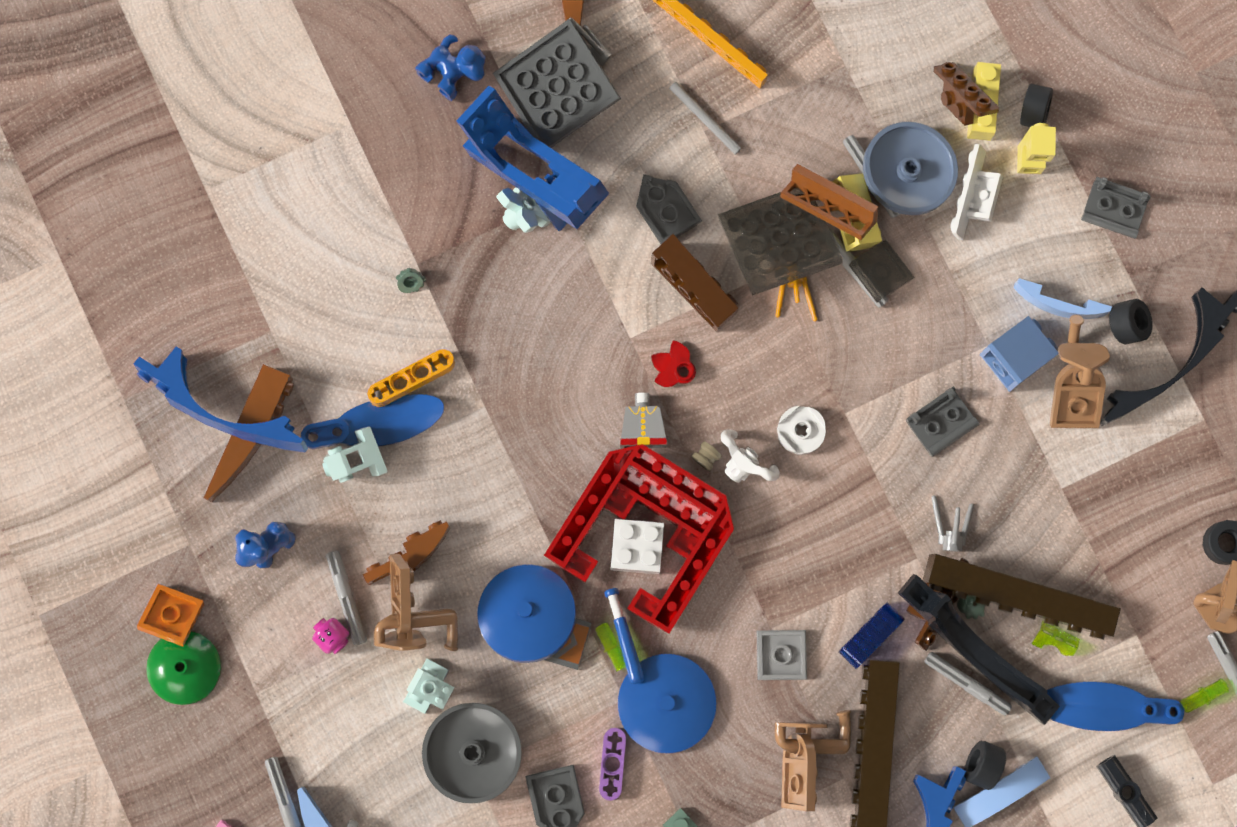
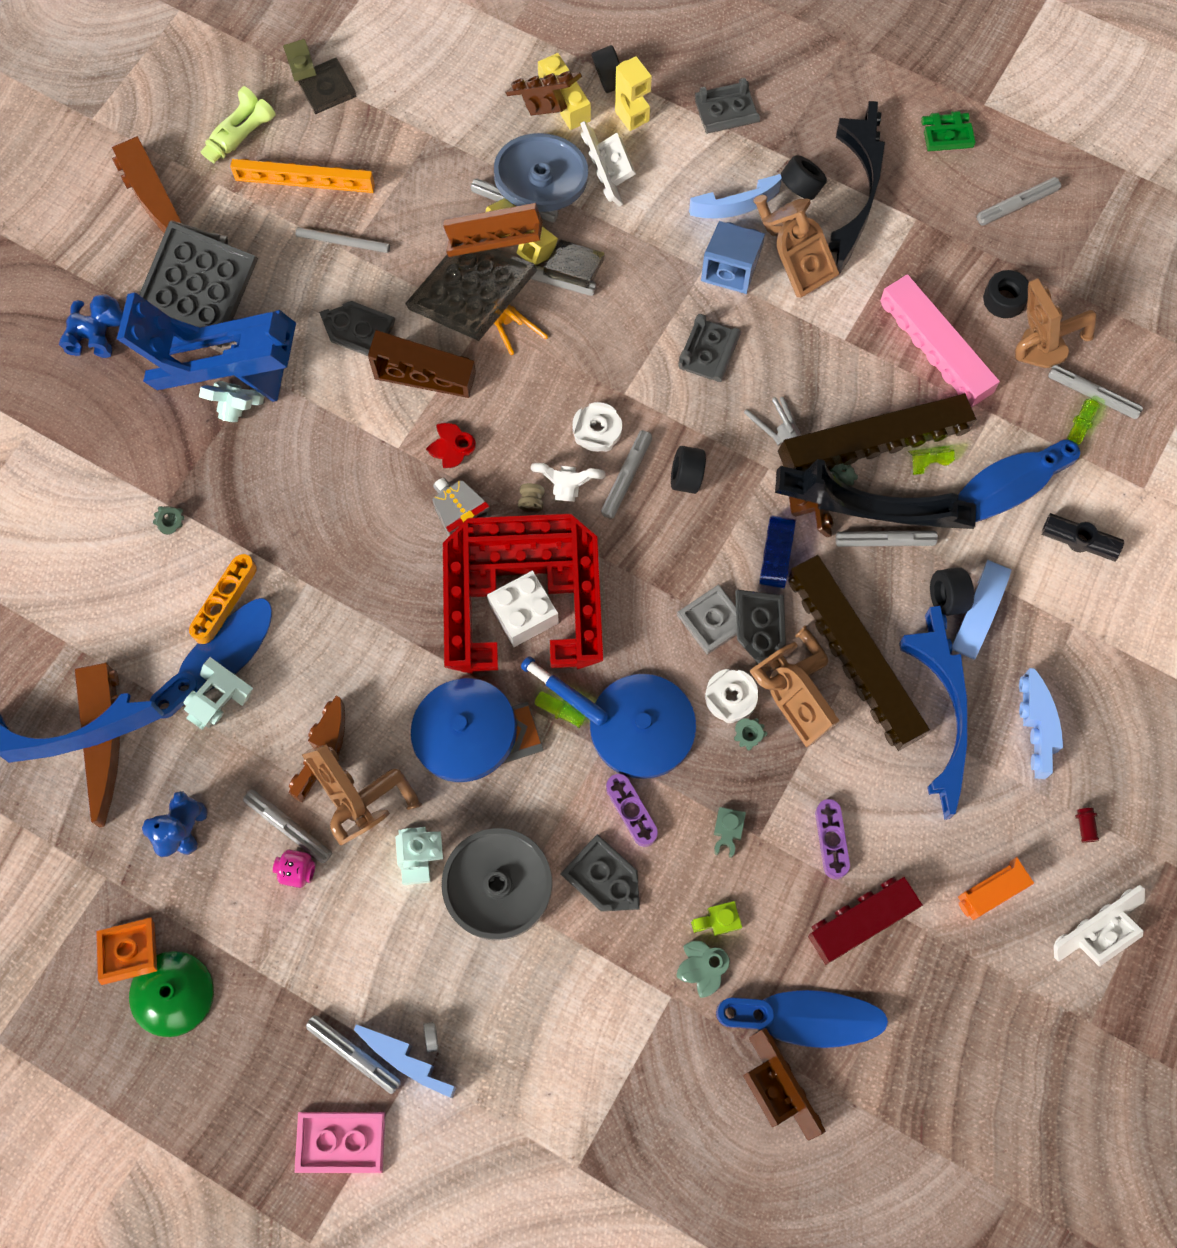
camera: 30 degrees left, 10 degrees down
(742, 738) = (728, 709): none -> white plate
(744, 759) = (744, 728): none -> sand green animal
(797, 486) = (626, 474): none -> light grey axle
(815, 686) = (760, 623): none -> dark grey tile
(847, 519) = (688, 469): none -> black tyre
(1137, 544) = (938, 340): none -> bright pink brick

